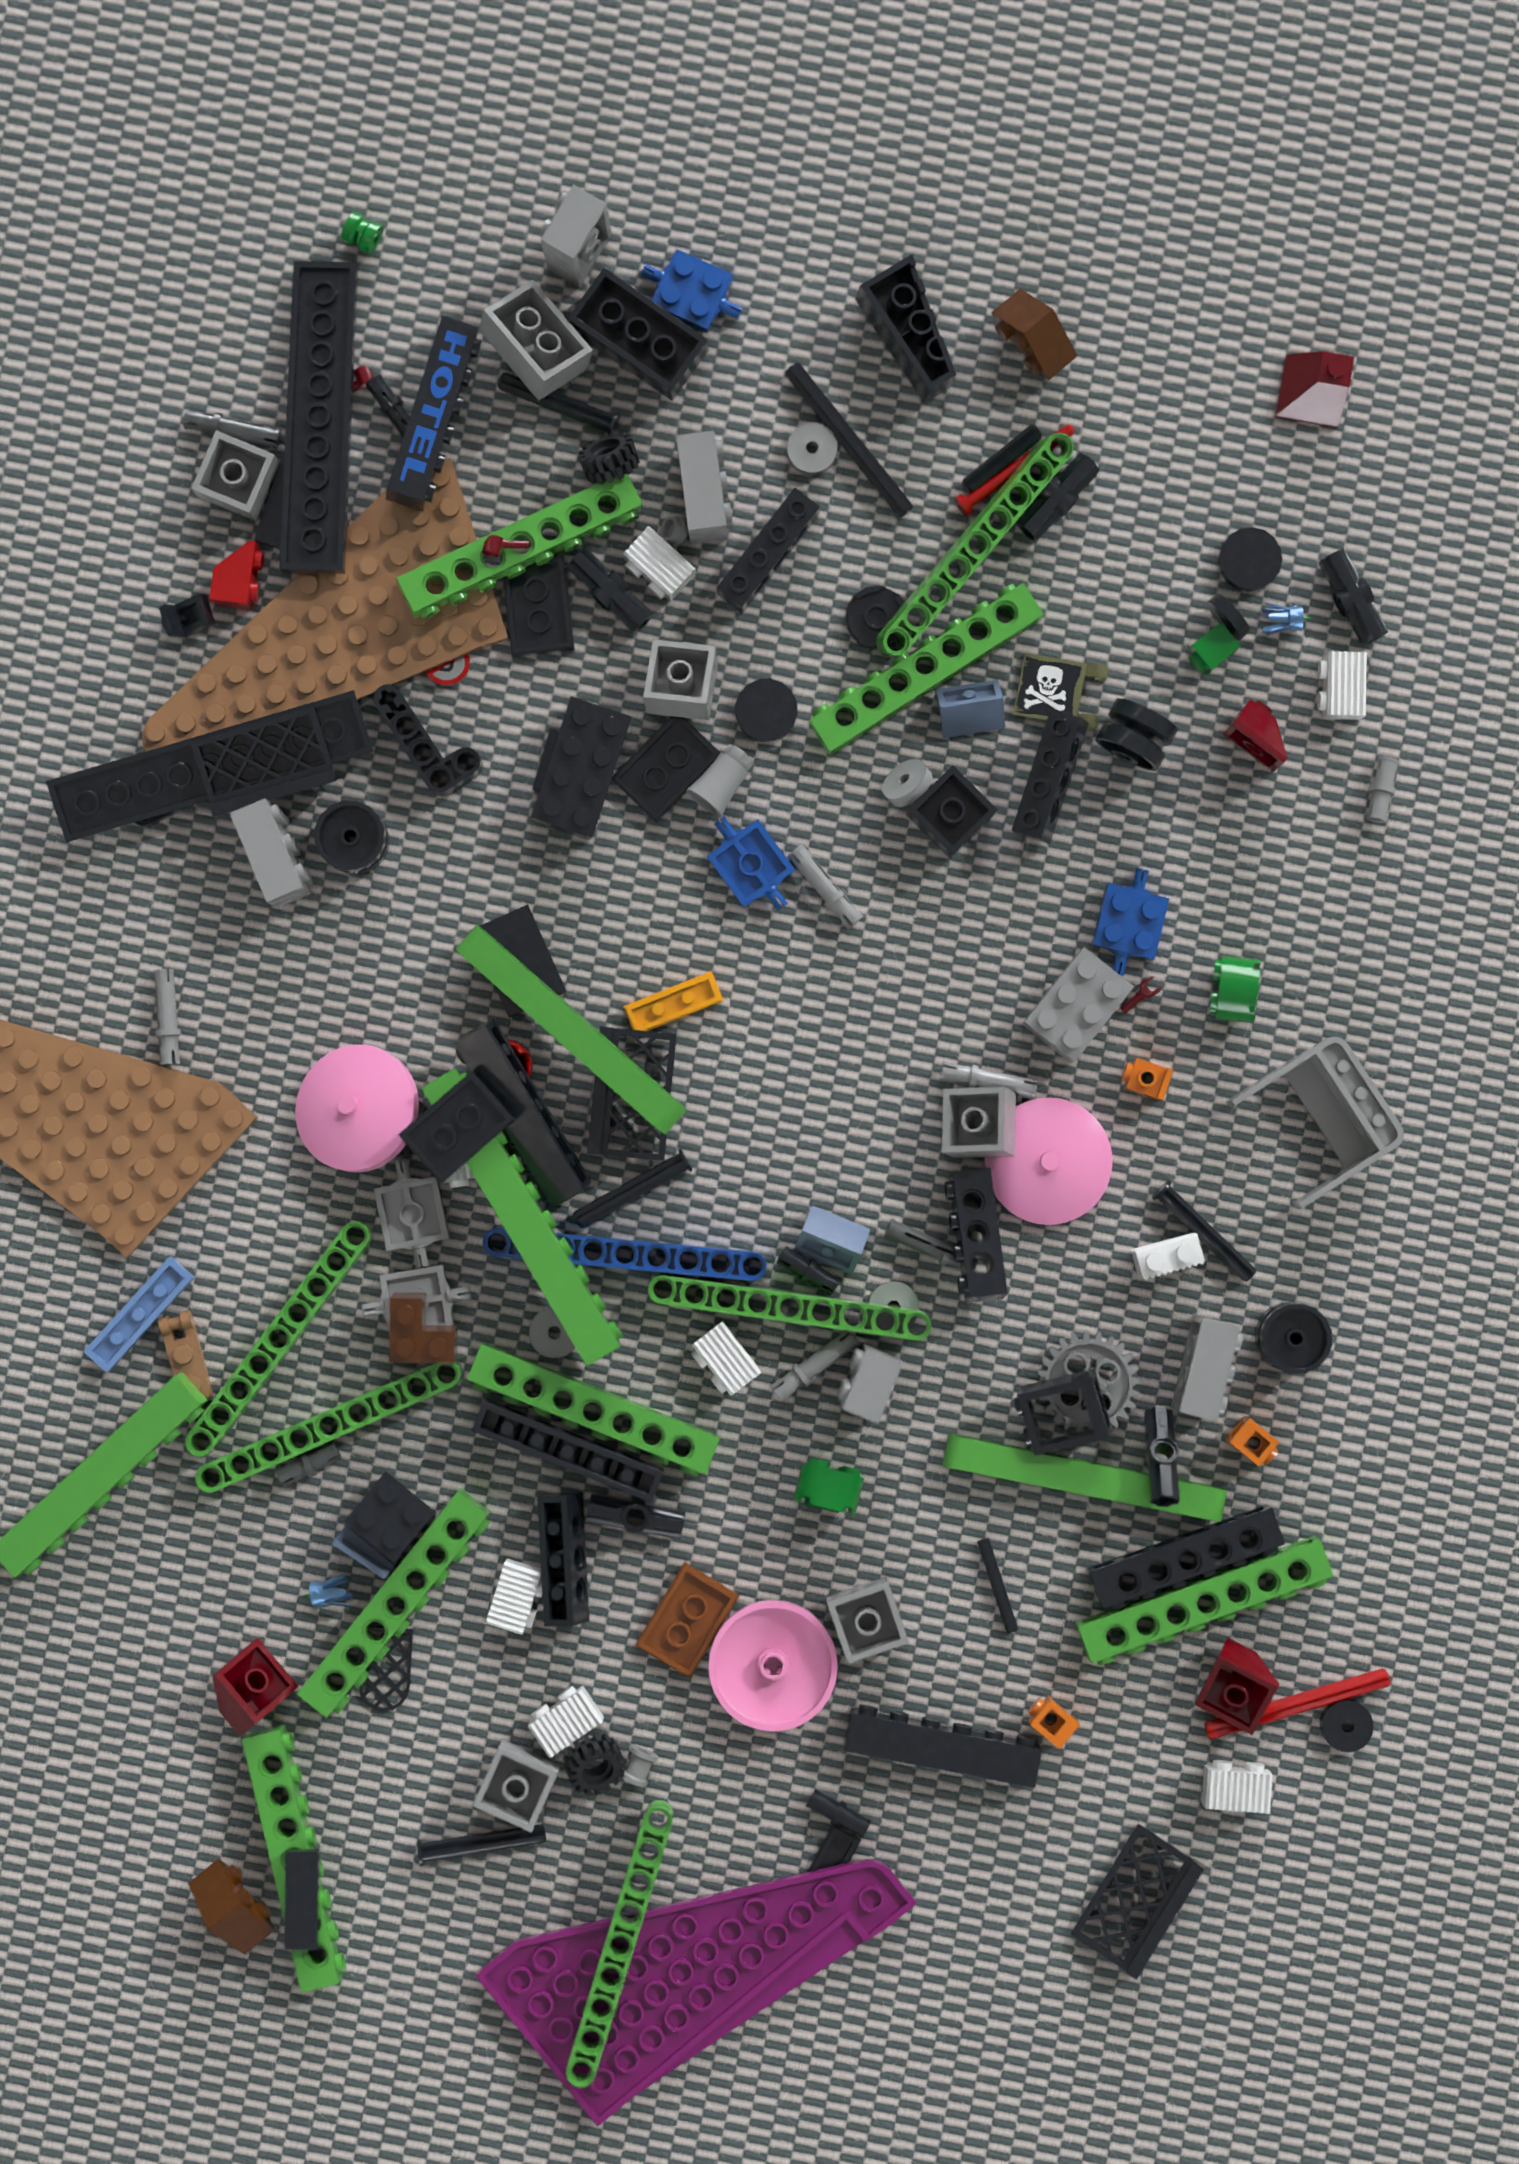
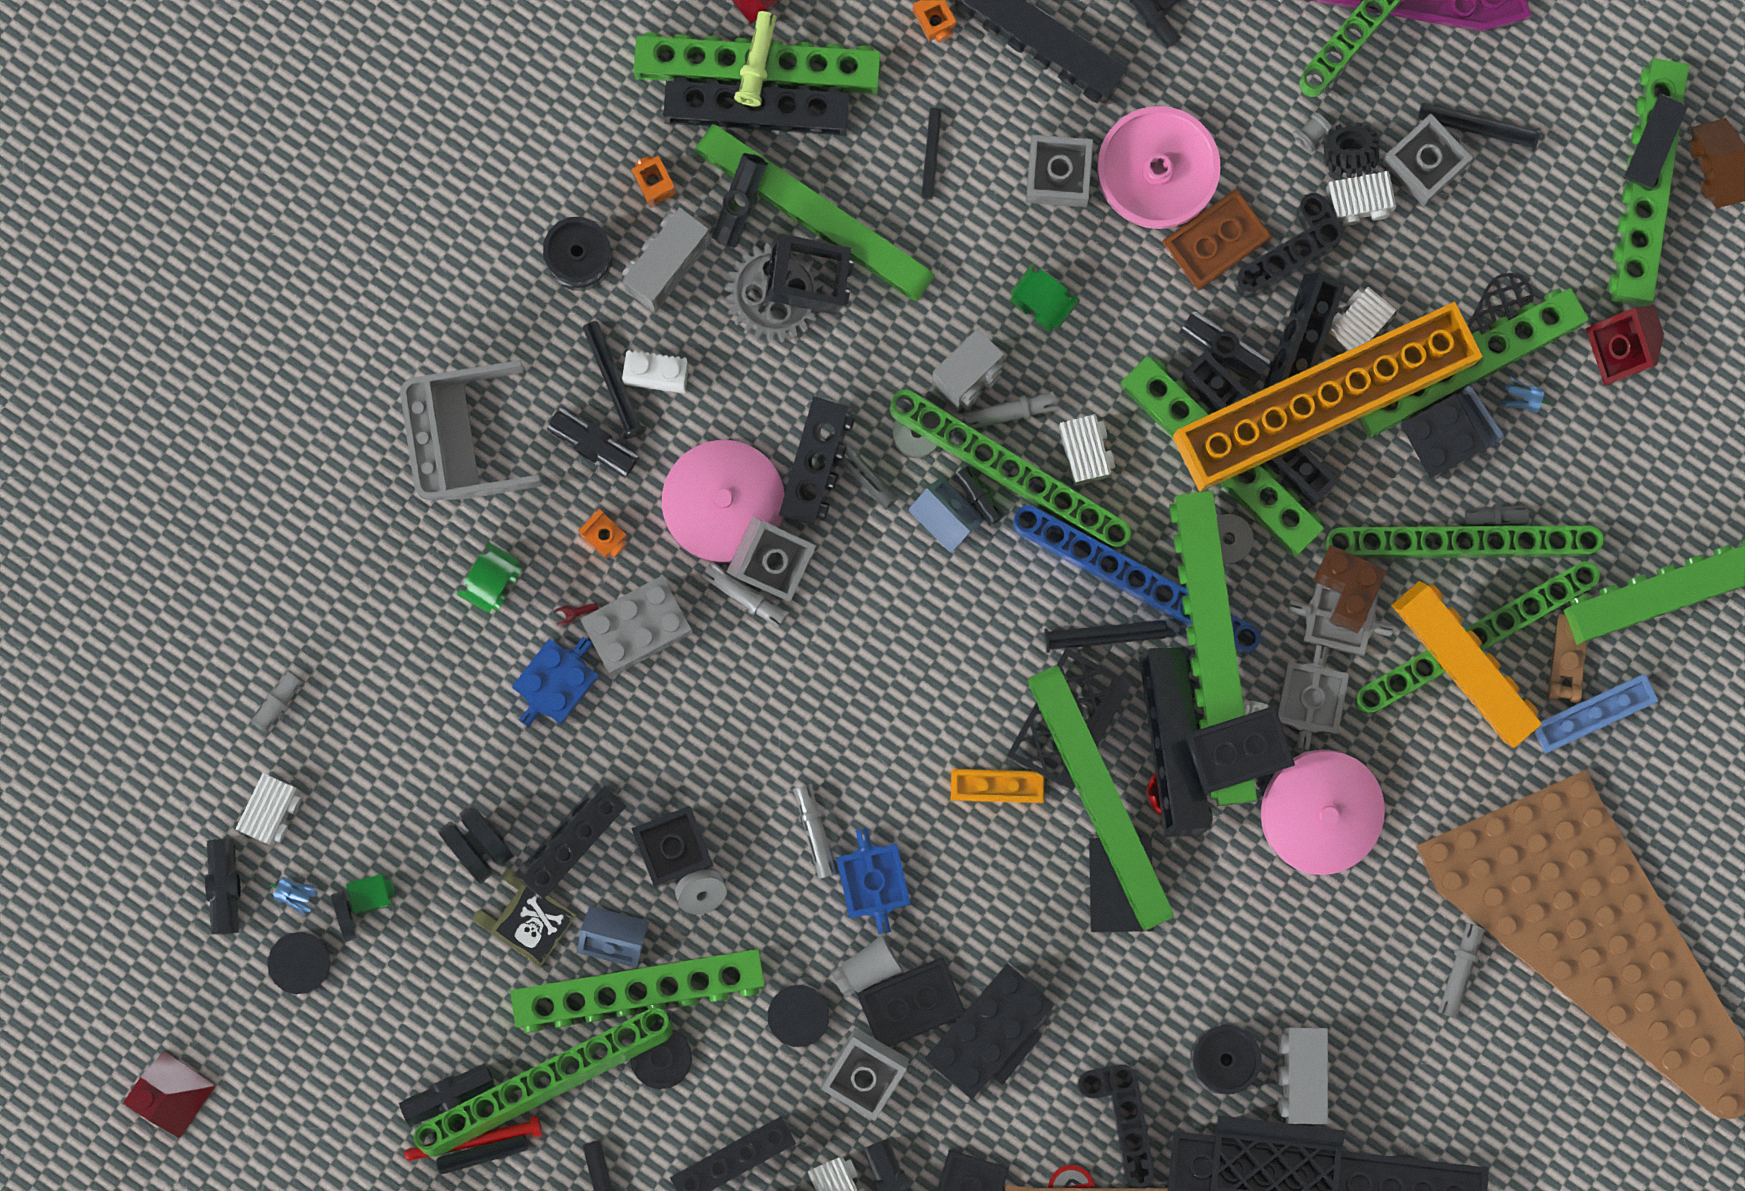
camera: 160 degrees left, 5 degrees down
(277, 1305) = (1467, 664): none -> light orange brick
(514, 1505) = (1327, 396): none -> light orange brick
(615, 1634) = (1285, 252): none -> black beam
(1197, 1162) = (592, 442): none -> black piece
(1204, 1589) = (754, 71): none -> yellowish green pin
(1258, 734) = (365, 800): dark red slope -> none

